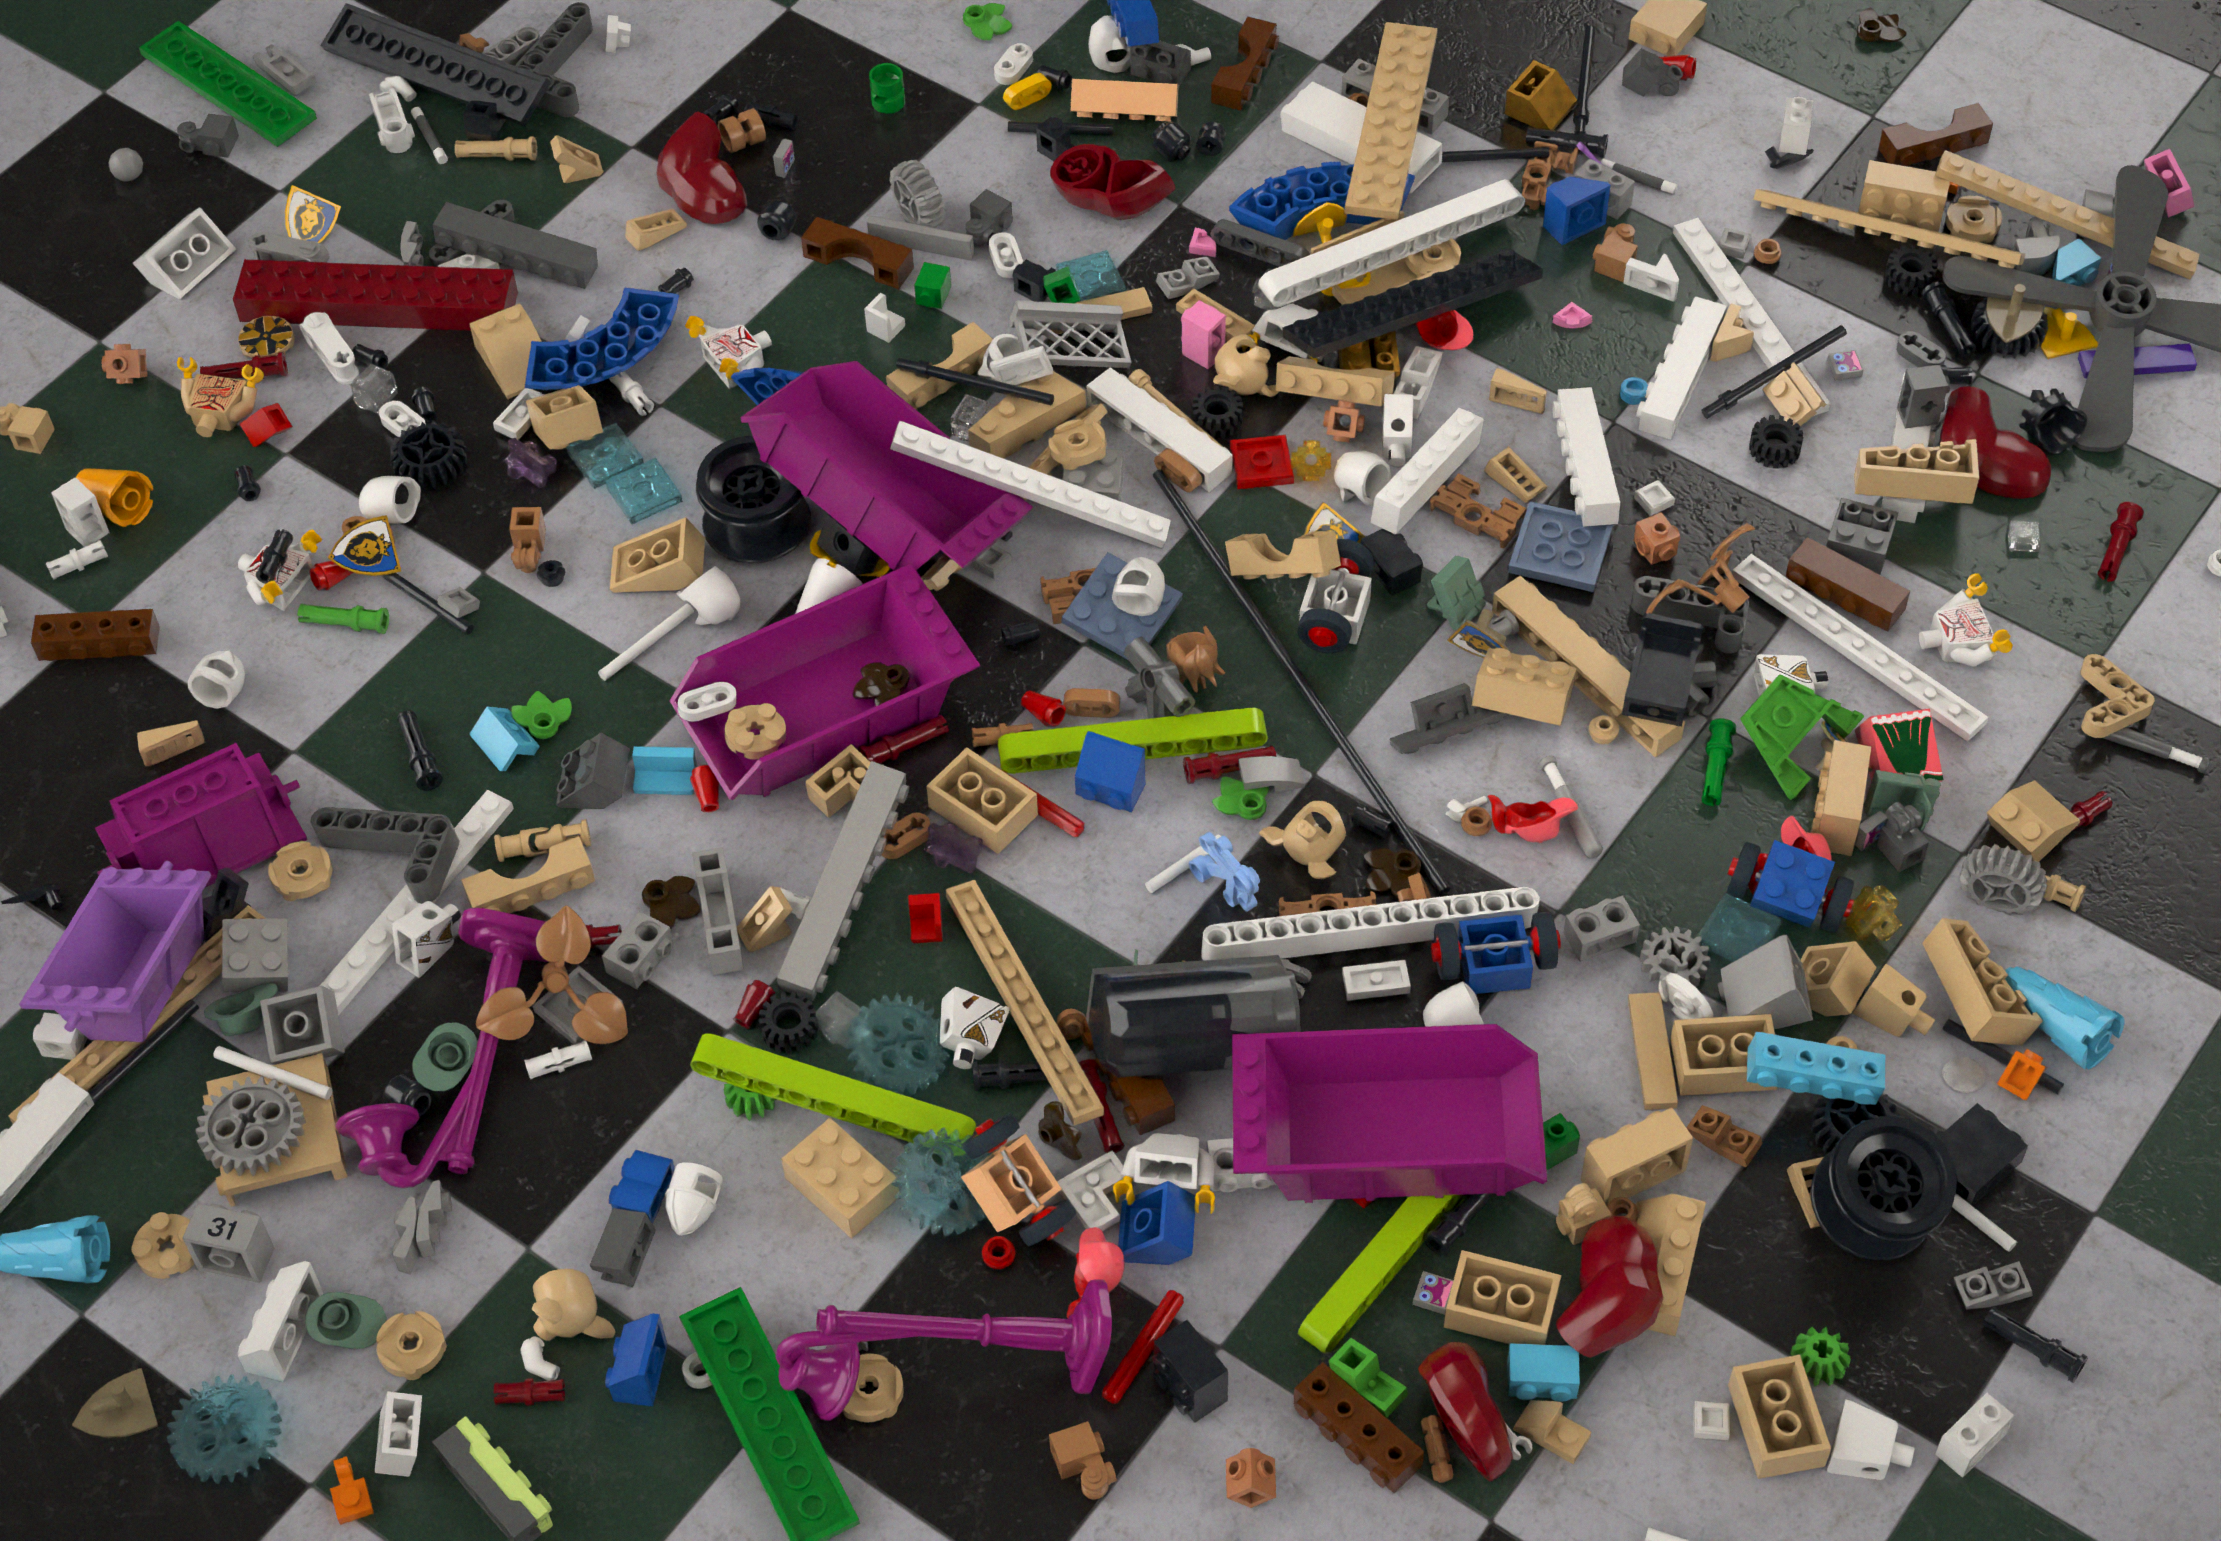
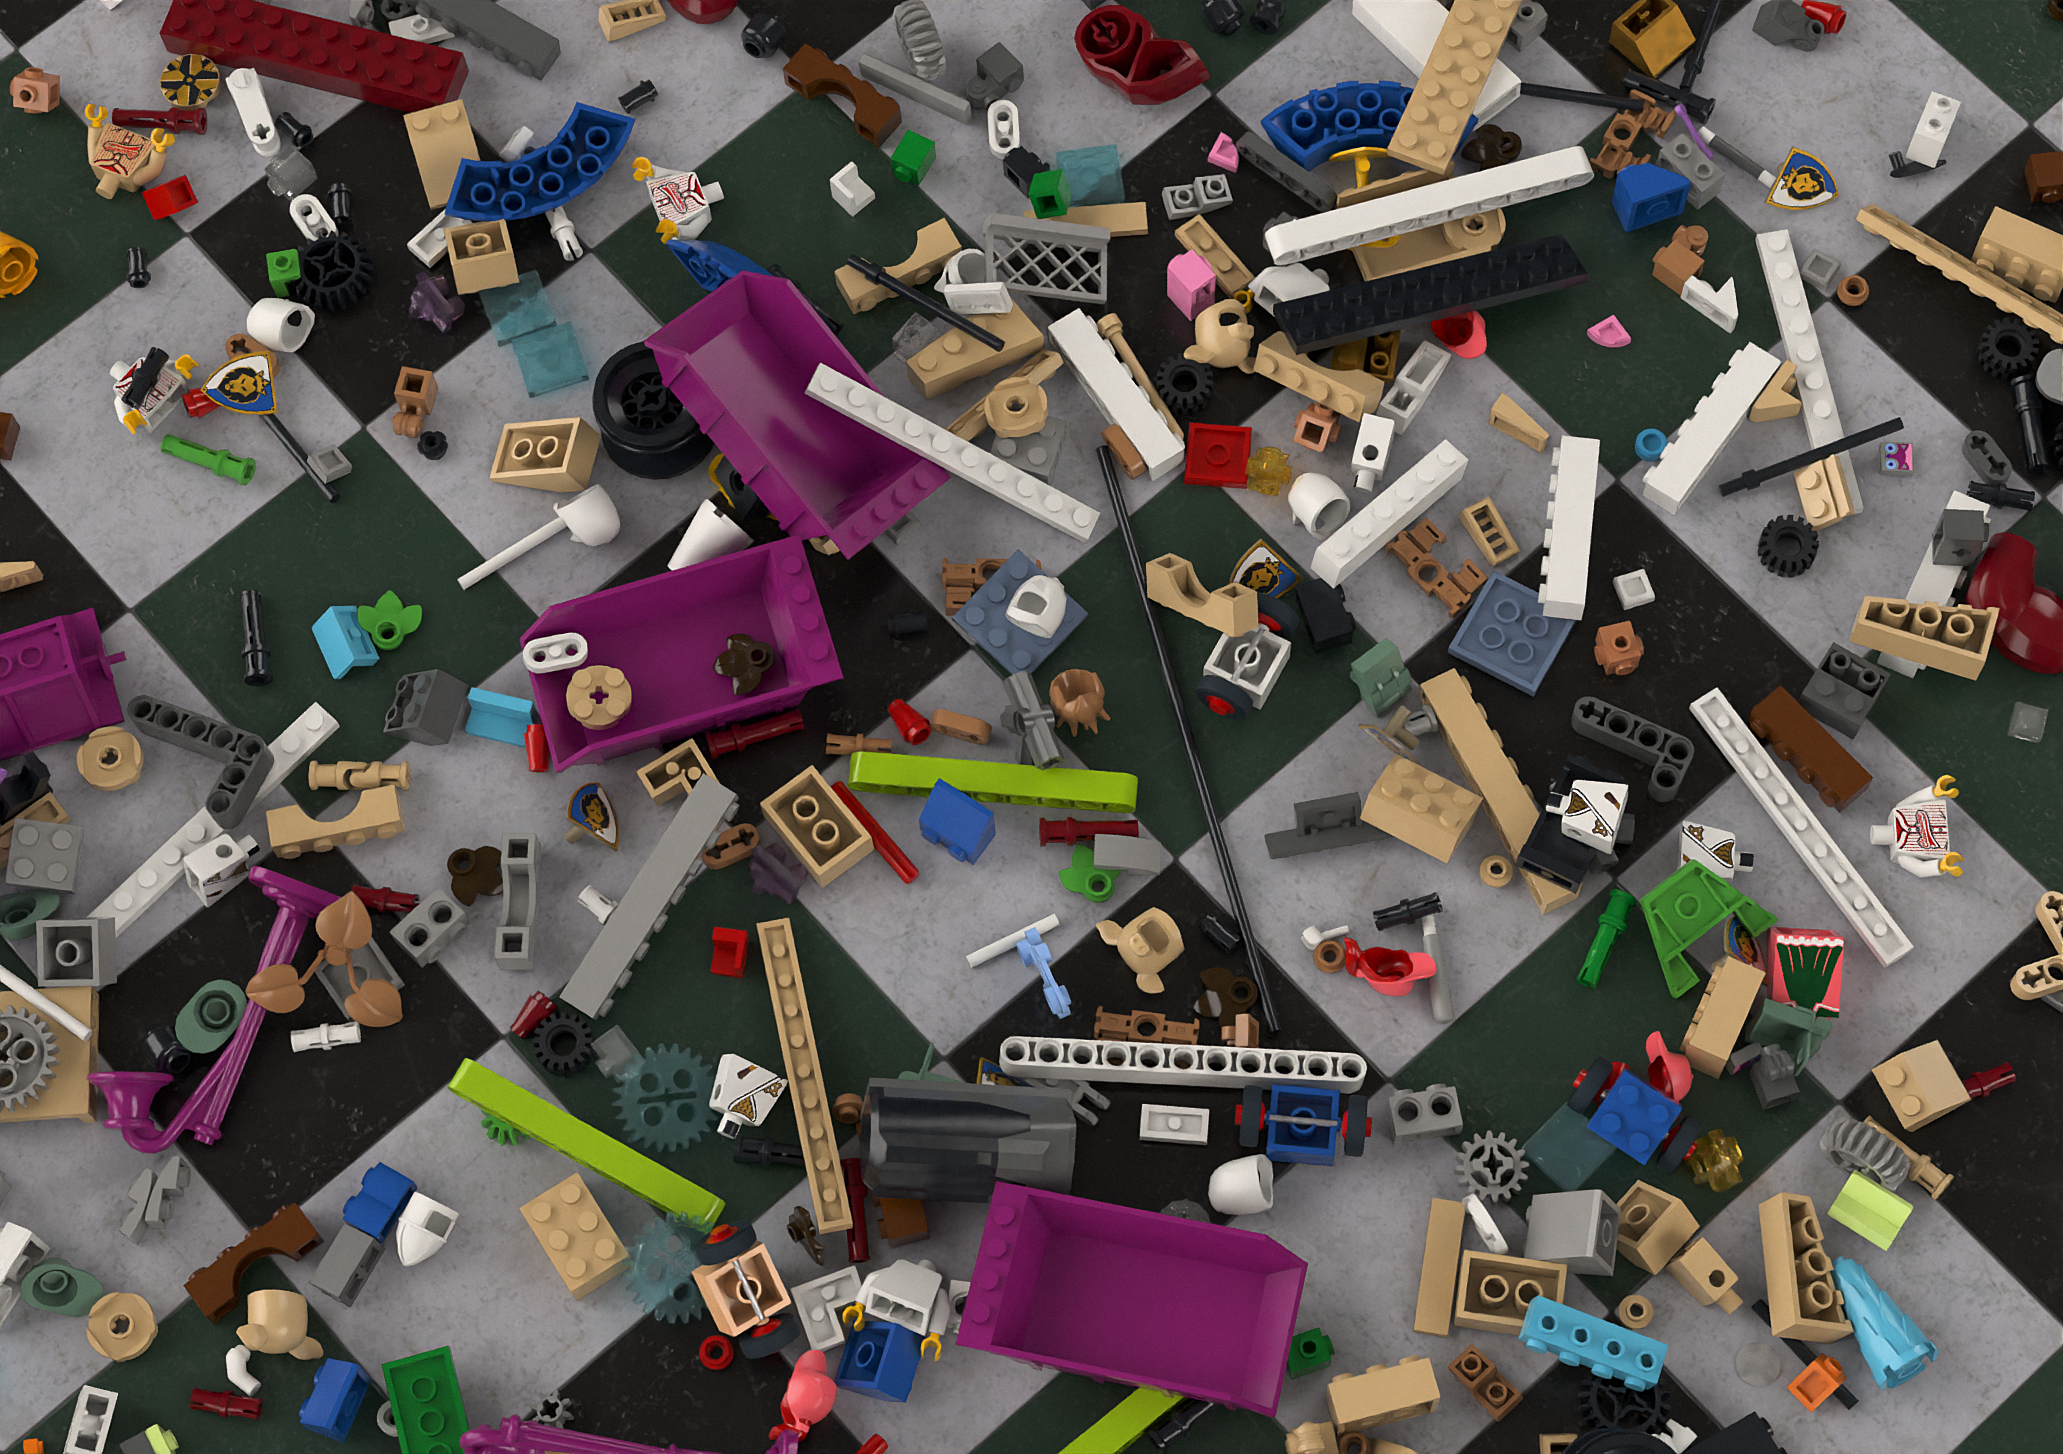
camera: 15 degrees right, 15 degrees up
(217, 679) = (64, 513): white piece -> none
(383, 455) = (283, 268): none -> bright green bracket
(557, 1233) = (217, 1286): none -> reddish brown arch
(766, 920) = (565, 922): tan slope -> none
(768, 830) = (592, 814): none -> shield
(1428, 197) = (1488, 147): none -> dark brown plate
(1536, 771) = (1407, 911): none -> black pin
(1677, 654) = (1591, 812): none -> white torso
(1700, 180) = (1802, 182): none -> shield
(1728, 590) = (1669, 740): medium nougat plant -> none
(2023, 925) = (1870, 1210): none -> yellowish green panel

